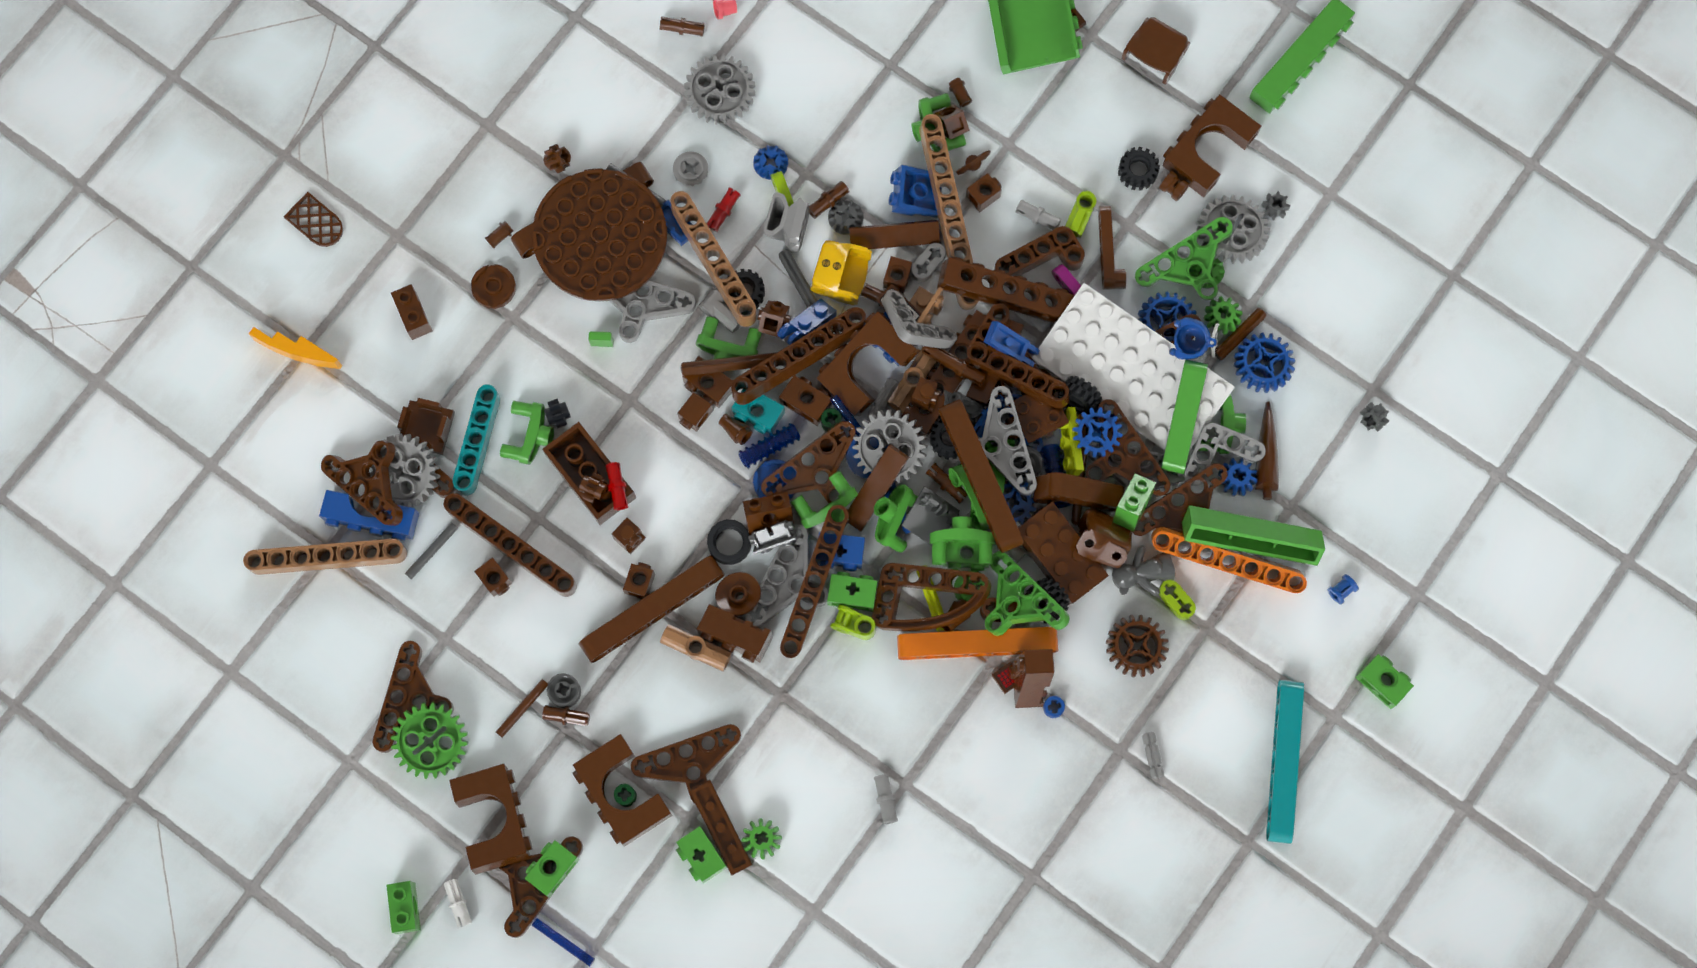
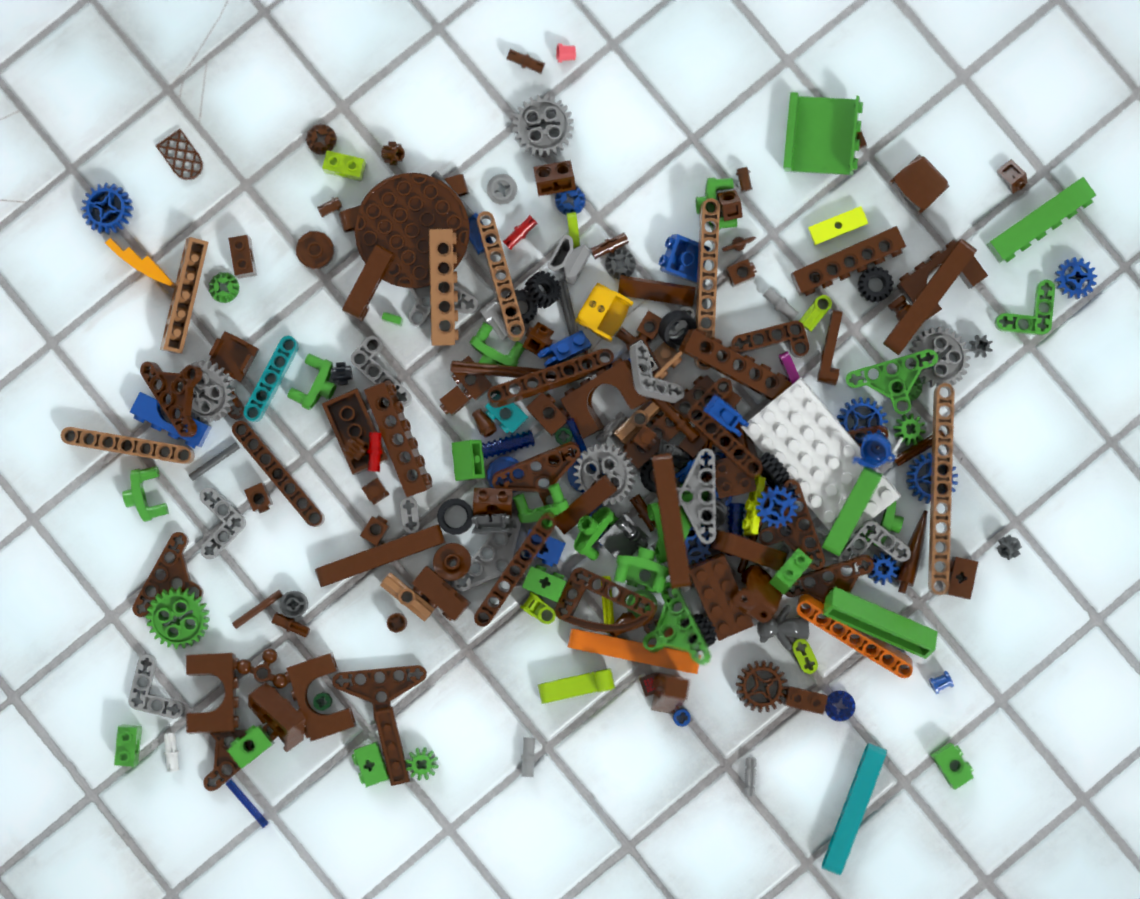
camera: 15 degrees right, 10 degrees up
(226, 294) = (108, 201): none -> blue gear
(348, 612) = (137, 497): none -> bright green connector
(353, 370) = (184, 295): none -> medium nougat brick
(399, 362) = (233, 287): none -> bright green gear
(415, 846) = (148, 698): none -> light grey beam
(462, 614) = (226, 519): none -> light grey beam
(472, 174) = (318, 147): none -> reddish brown gear
(504, 185) = (344, 165): none -> lime brick
(549, 759) = (269, 656): none -> reddish brown piece
(562, 303) = (367, 283): none -> reddish brown beam
(577, 822) = (278, 714): none -> reddish brown wedge
(602, 424) = (396, 448): none -> reddish brown brick
(606, 403) = (369, 363): none -> light grey beam
(658, 343) = (438, 336): none -> medium nougat brick
(670, 557) = (414, 513): none -> light grey beam
(688, 678) = (394, 623): none -> reddish brown wheel
(727, 473) = (468, 460): none -> bright green brick
(747, 140) = (554, 178): none -> reddish brown brick
(765, 263) = (548, 284): none -> black tyre
(915, 264) = (667, 322): none -> black tyre
(922, 699) = (576, 685): none -> lime beam
(1088, 108) = (848, 221): none -> neon yellow tile
(1140, 113) = (890, 237): none -> reddish brown brick
(1192, 648) = (805, 700): none -> reddish brown brick
(1203, 162) = (930, 296): none -> reddish brown beam
(1241, 638) = (843, 714): none -> clear blue gear
(1257, 16) = (1013, 176): none -> bracket
(1275, 377) = (946, 480): none -> medium nougat beam
(1325, 165) = (1033, 320): none -> bright green beam
(1335, 453) = (968, 571): none -> reddish brown brick
(1362, 99) = (1075, 269): none -> blue gear

